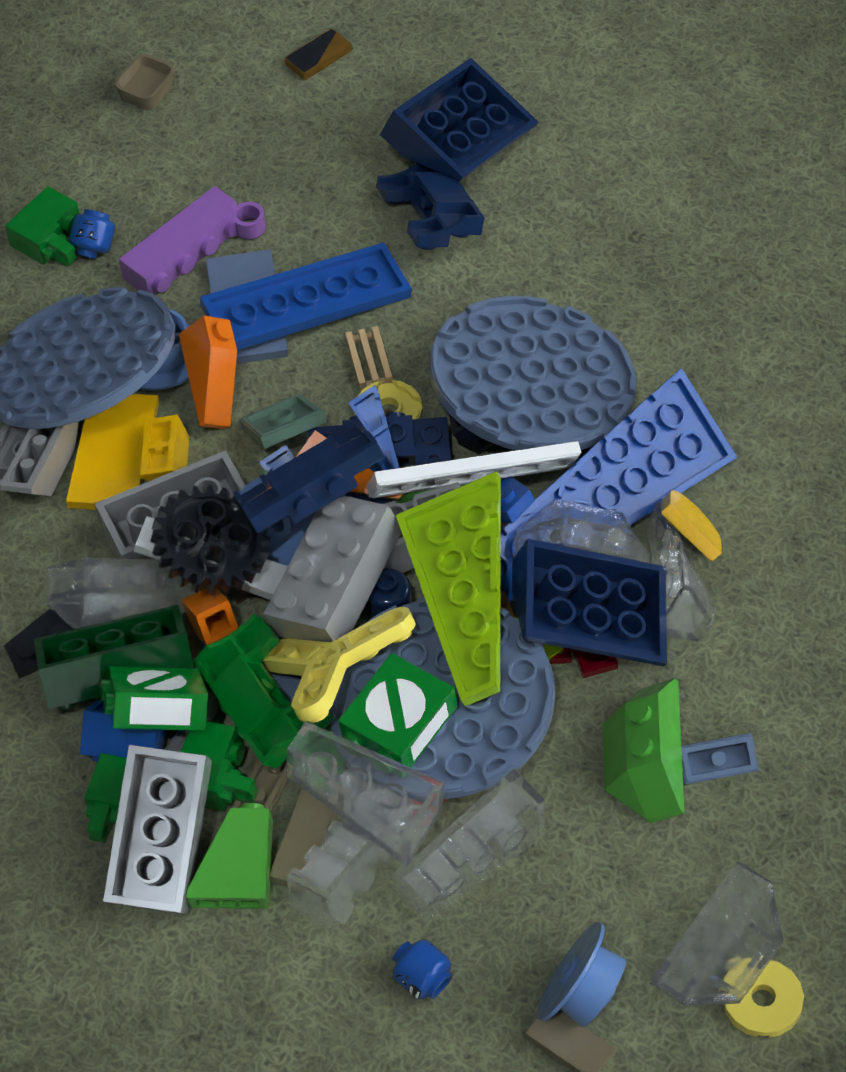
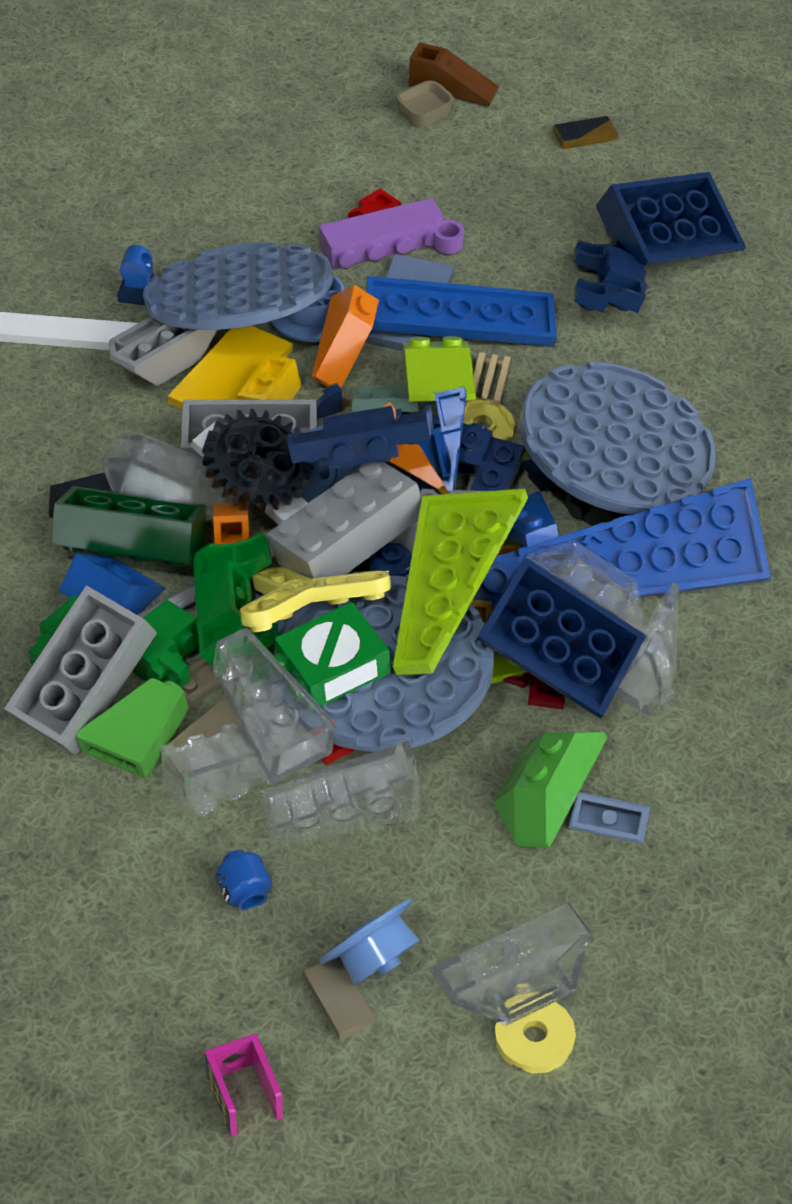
camera: 20 degrees right, 5 degrees down
(43, 227) = (274, 182): green hinge -> none
(92, 233) = (310, 200): blue head -> none
(155, 698) = (138, 565): green brick -> none
(157, 213) = (374, 202): none -> red plate
(162, 40) = (451, 72): none -> reddish brown slope
(232, 441) = (330, 402): none -> dark blue tile
(323, 371) = (436, 367): none -> lime slope
(470, 469) = (539, 493): white tile -> none
(692, 524) = (693, 611): yellow tile -> none

